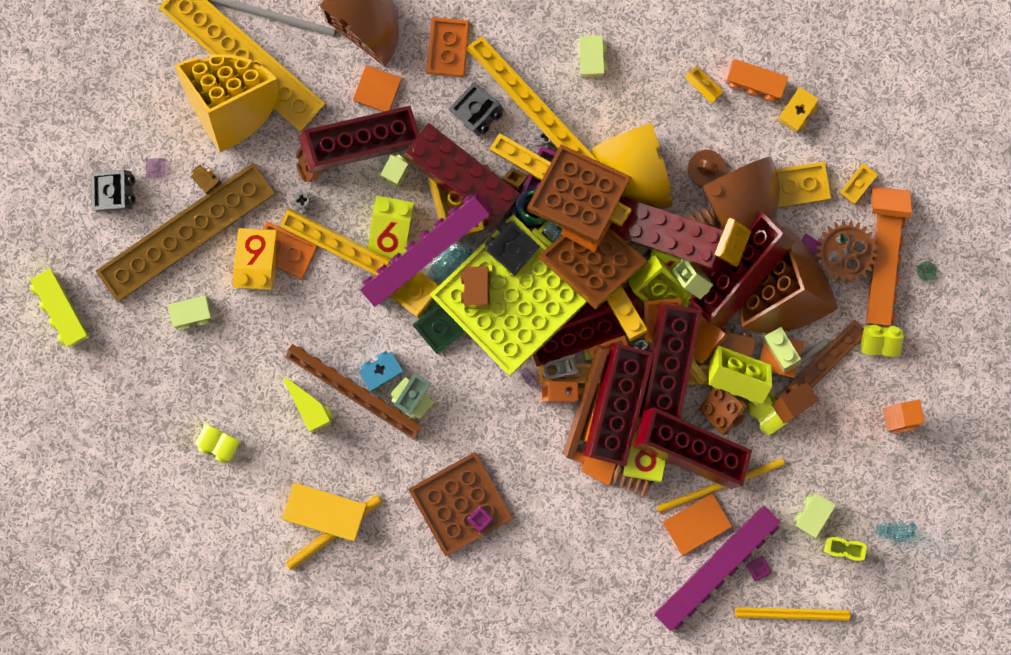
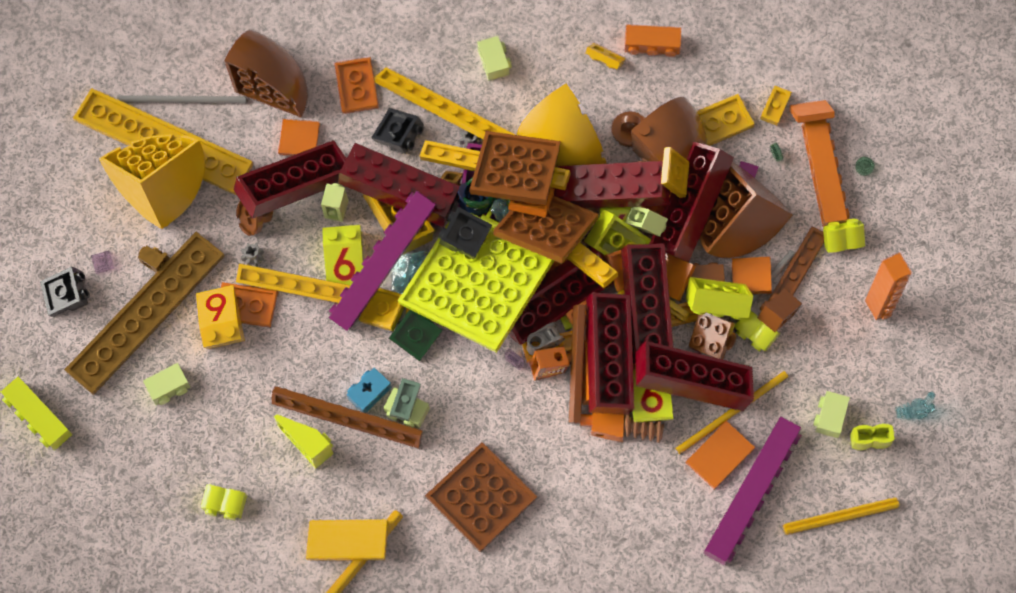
camera: 15 degrees left, 15 degrees down
(476, 287) = (441, 278): dark orange brick -> none
(480, 519) = (504, 504): magenta tile -> none
(758, 568) = (793, 481): magenta tile -> none
(782, 350) = (752, 266): yellowish green brick -> none
(800, 99) = (699, 46): yellow brick -> none
(863, 257) = (768, 161): dark orange gear -> none

